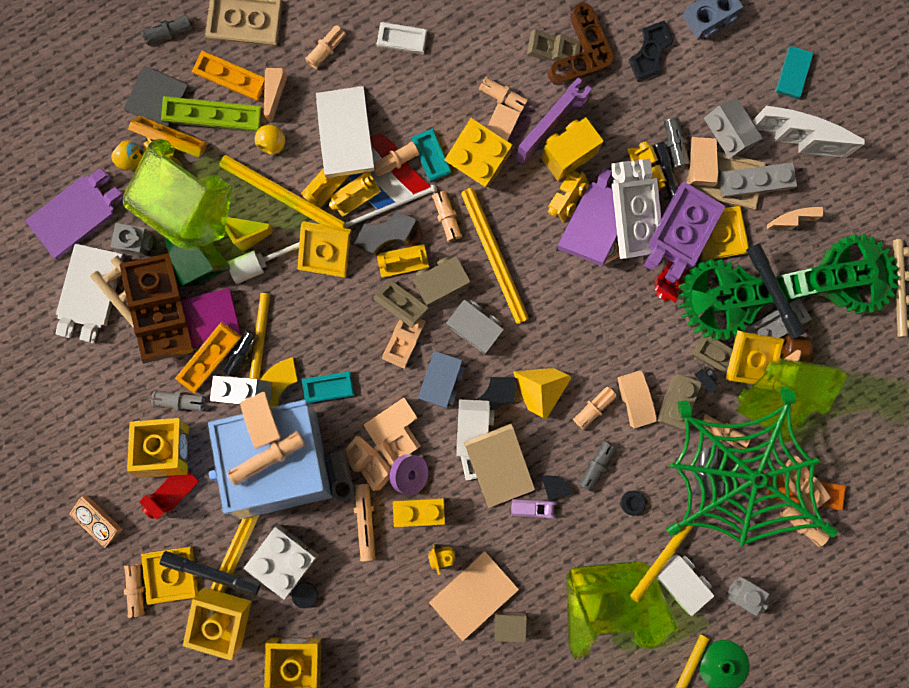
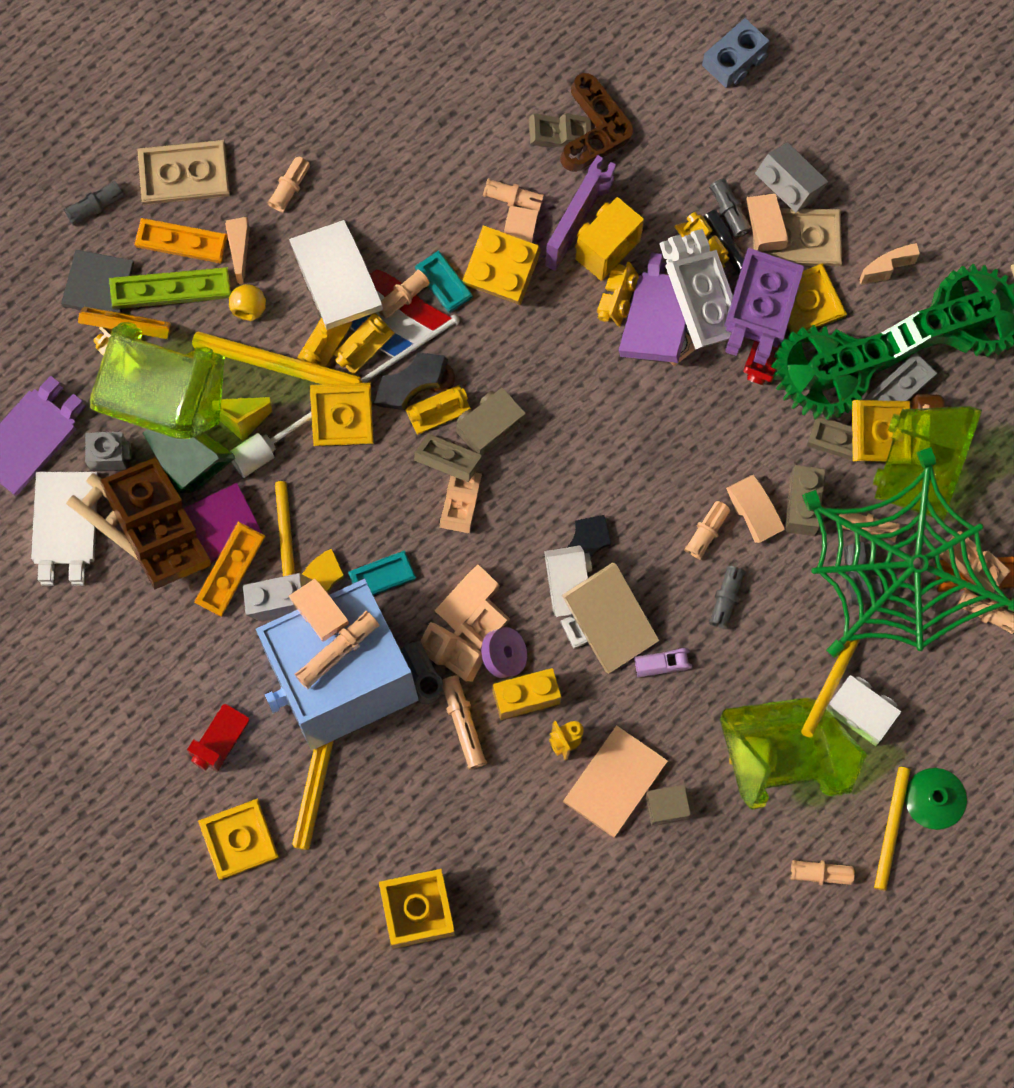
camera: 15 degrees left, 10 degrees down
(95, 521) = (132, 795): slope -> none
(127, 155) = (79, 356): yellow piece -> none
(134, 590) = (198, 866): light nougat pin -> none
(158, 448) = (194, 685): yellow brick -> none
(177, 401) = (202, 630): light grey pin -> none
(183, 564) = (253, 817): black piece -> none
(217, 623) = (312, 876): yellow brick -> none
(240, 353) = (267, 555): black axle -> none
(281, 561) = (373, 788): white brick -> none
(304, 595) = (409, 826): black tile -> none
(402, 38) = (378, 156): white tile -> none
(440, 380) = (516, 536): sand blue brick -> none
(447, 216) = (479, 347): light nougat pin -> none
(475, 326) = (542, 465): light grey brick -> none
(494, 255) = (547, 381): yellow axle -> none
(541, 389) = (639, 522): yellow slope -> none
(555, 487) = (683, 632): black tile -> none
(633, 503) = (780, 631): black tile -> none
(646, 61) = (672, 123): black tile -> none
(707, 378) = (831, 463): black plate -> none
(748, 596) = (942, 706): light grey brick -> none
(757, 180) = (834, 230): light grey plate -> none
(788, 316) = (906, 372): black piece -> none
(794, 72) = (847, 102): teal tile -> none
(810, 132) = (881, 162): white slope -> none

